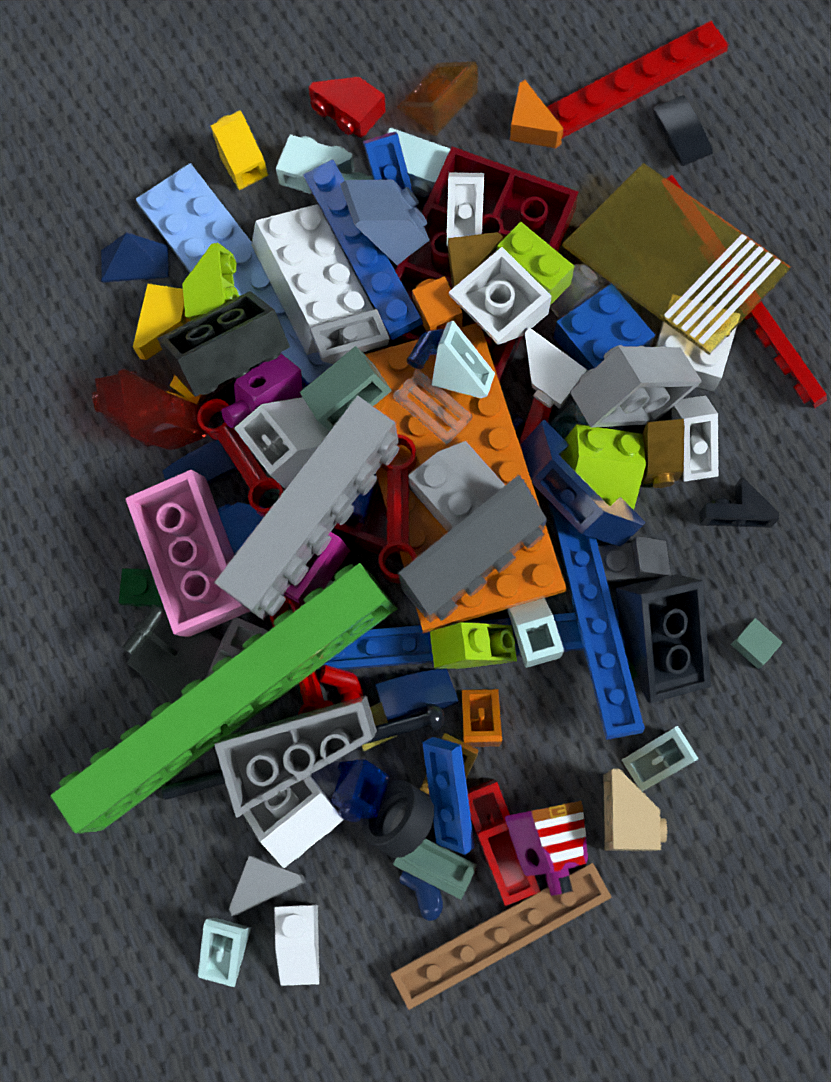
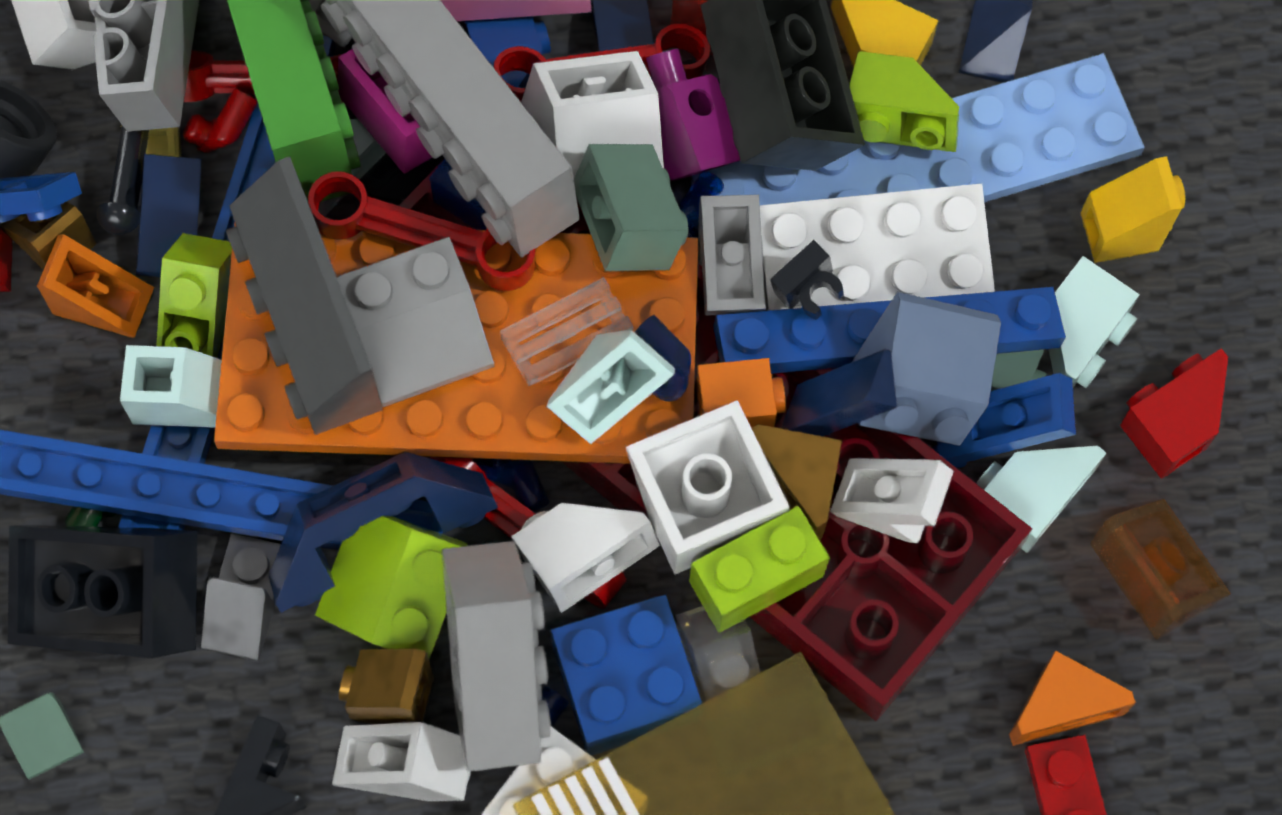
camera: 100 degrees right, 5 degrees down
(352, 289) = (804, 275): none -> black tile
(359, 790) = (58, 91): clear blue brick -> none
(419, 246) = (843, 396): none -> dark blue slope

